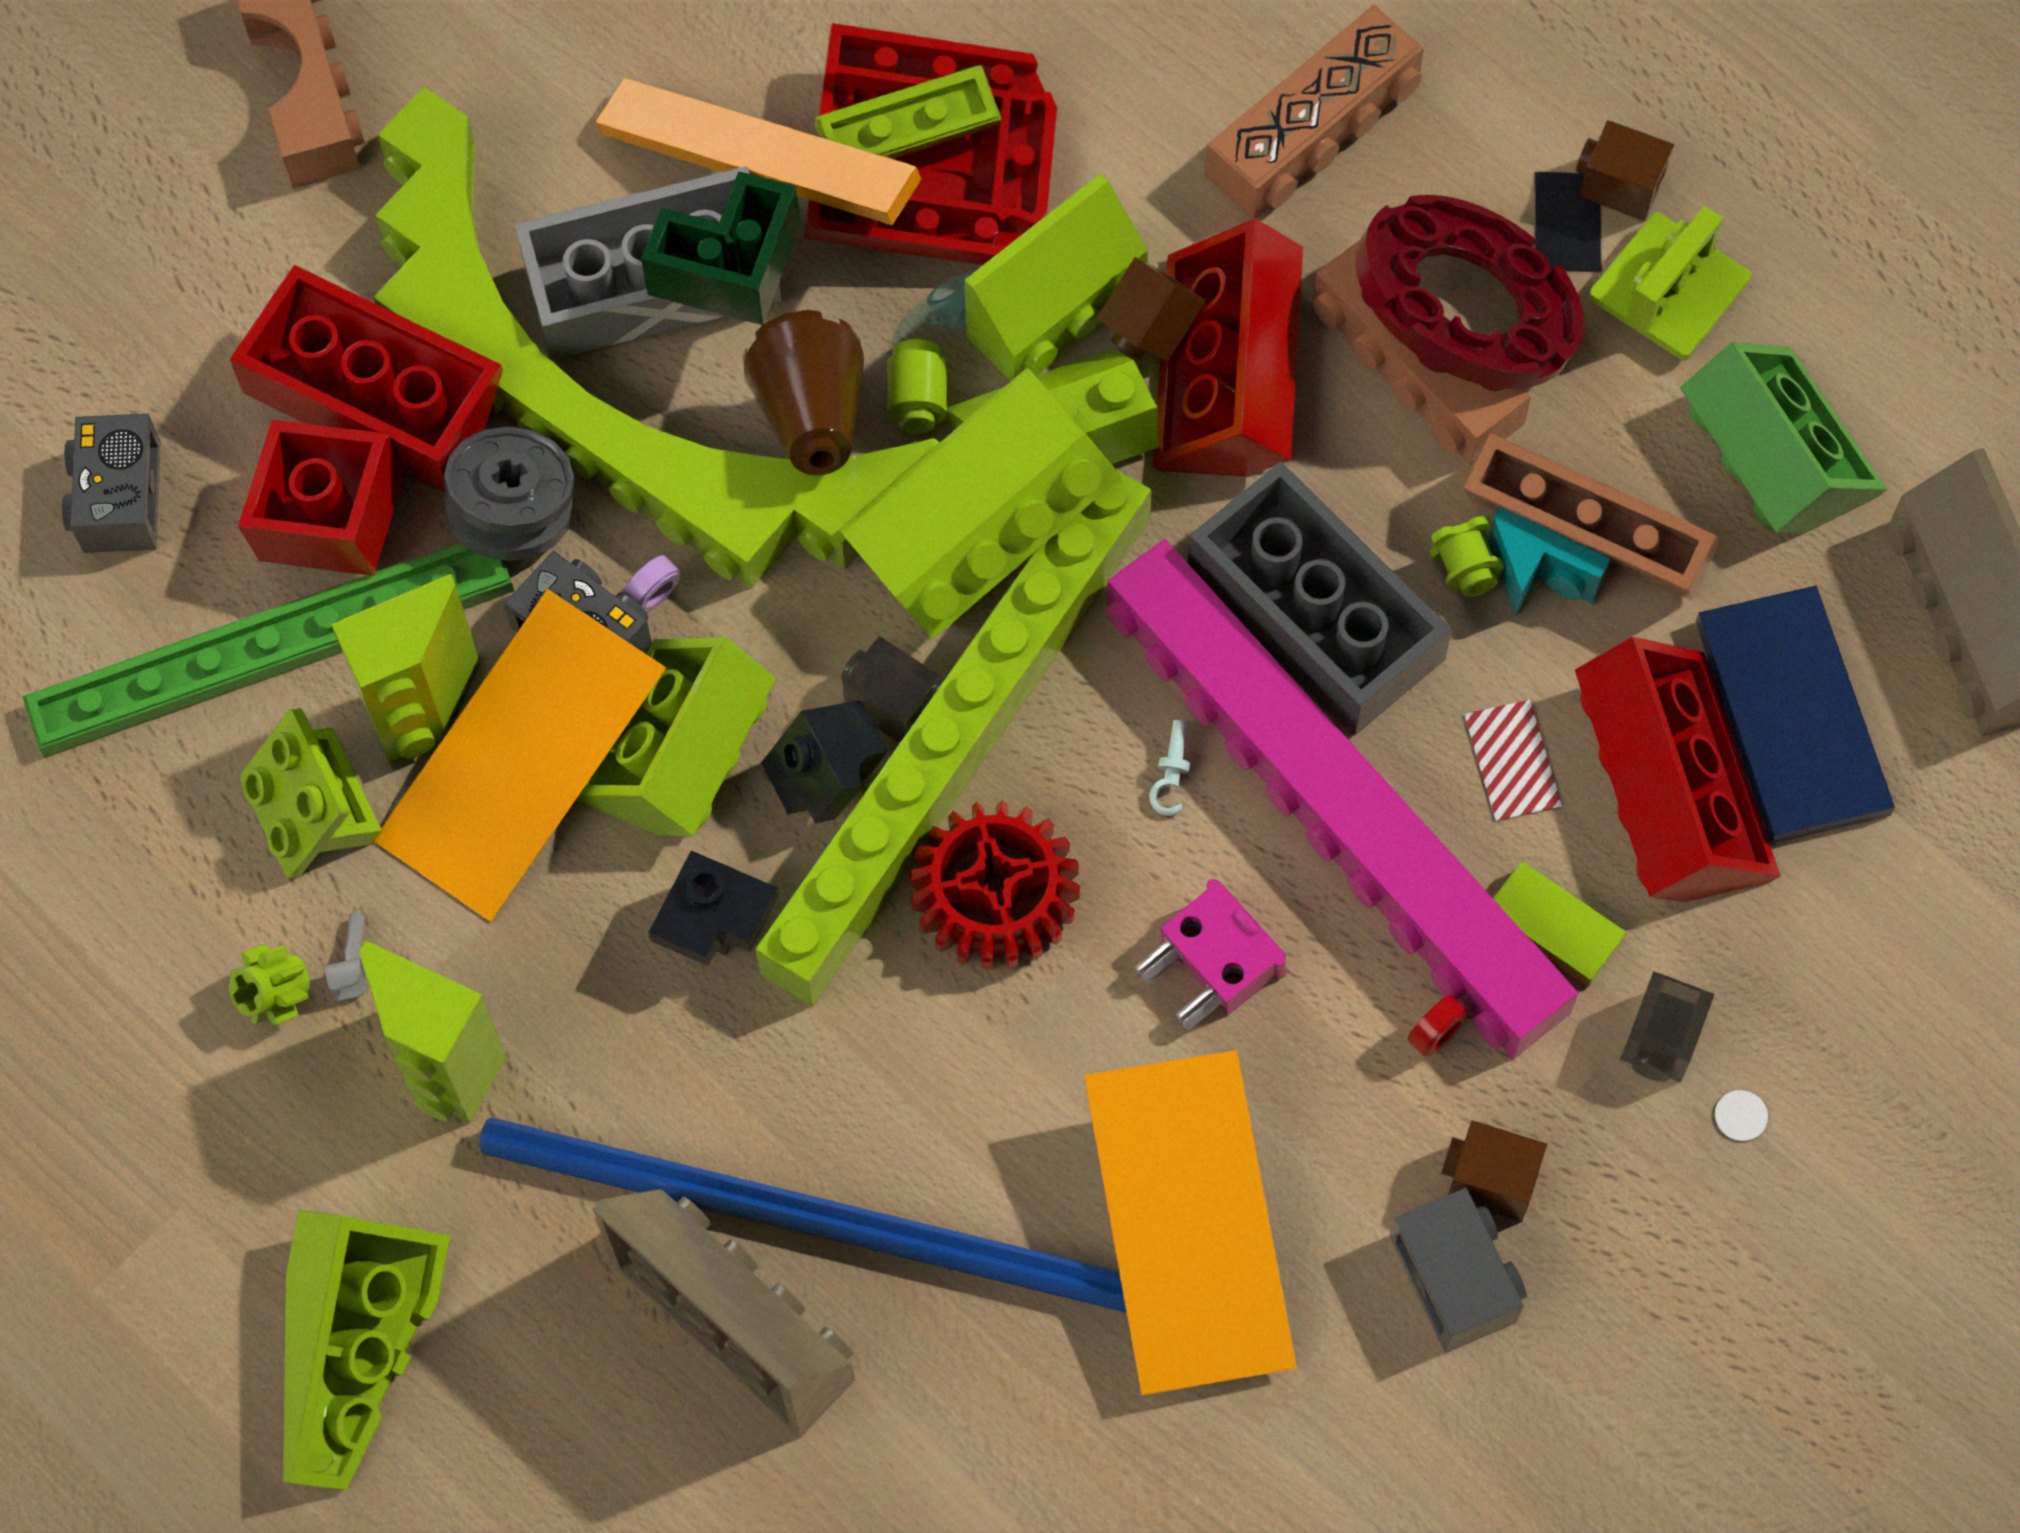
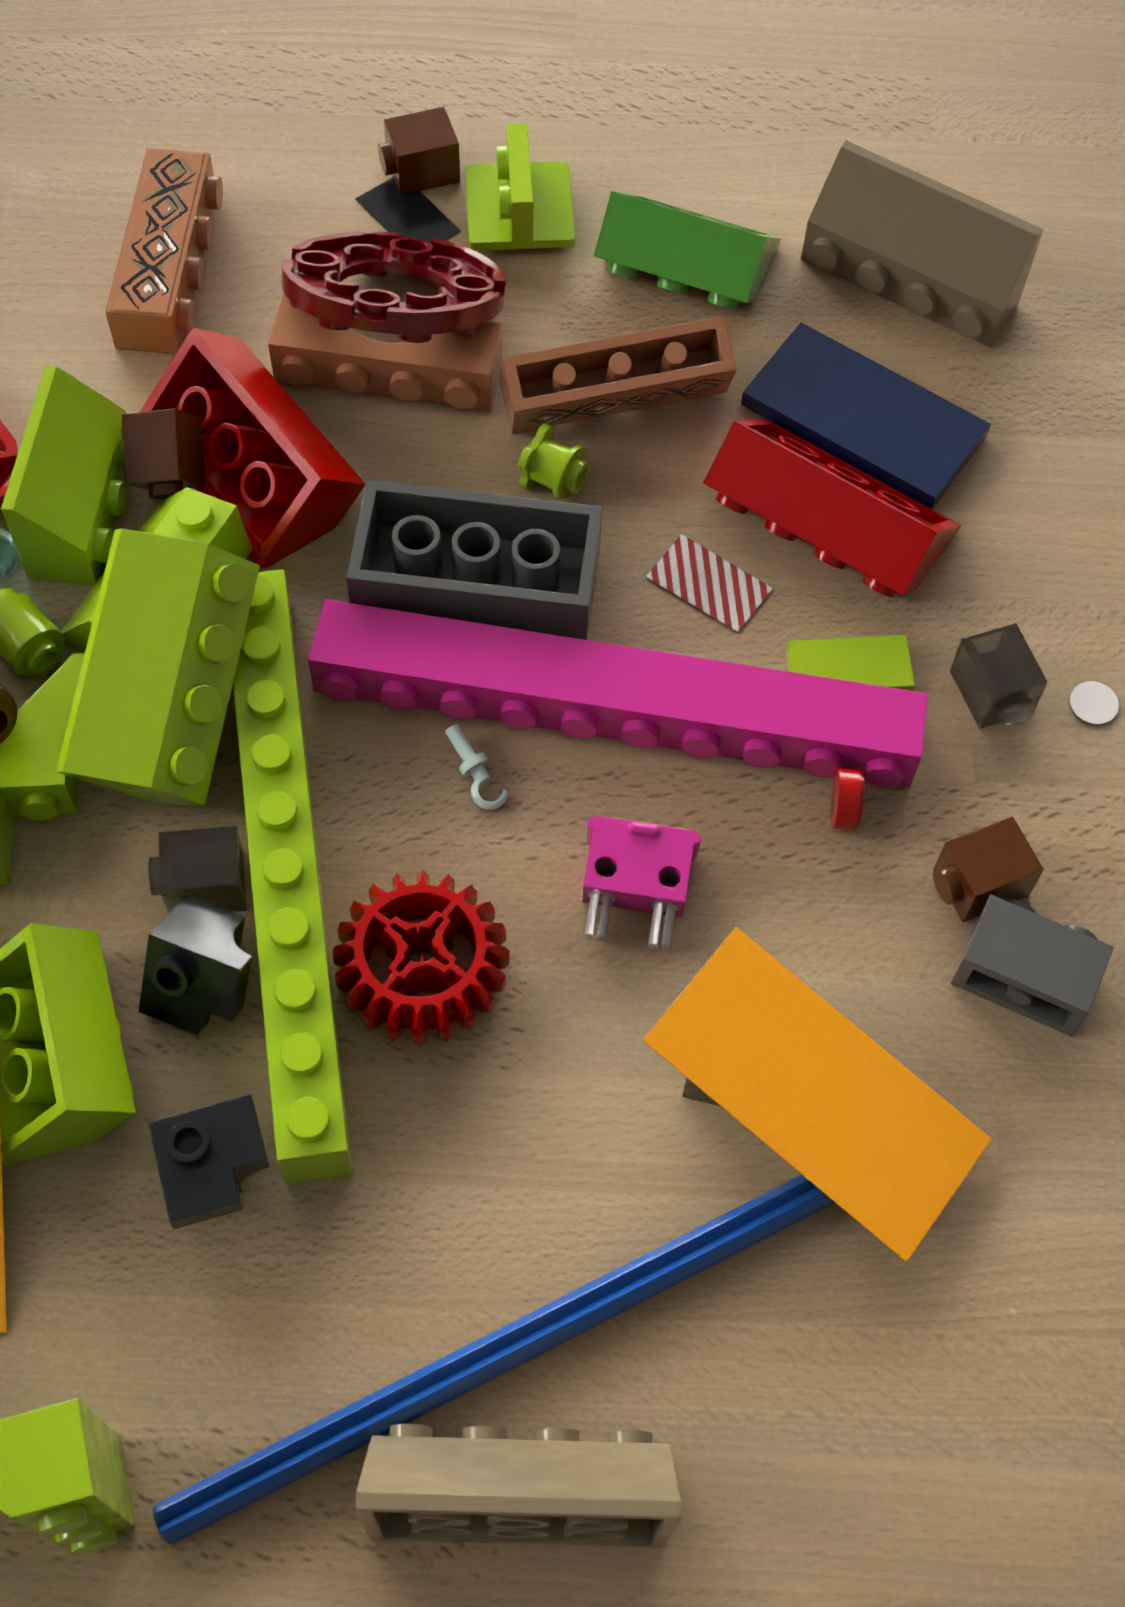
camera: 45 degrees left, 5 degrees down
(1540, 553) = (608, 427): teal slope -> none

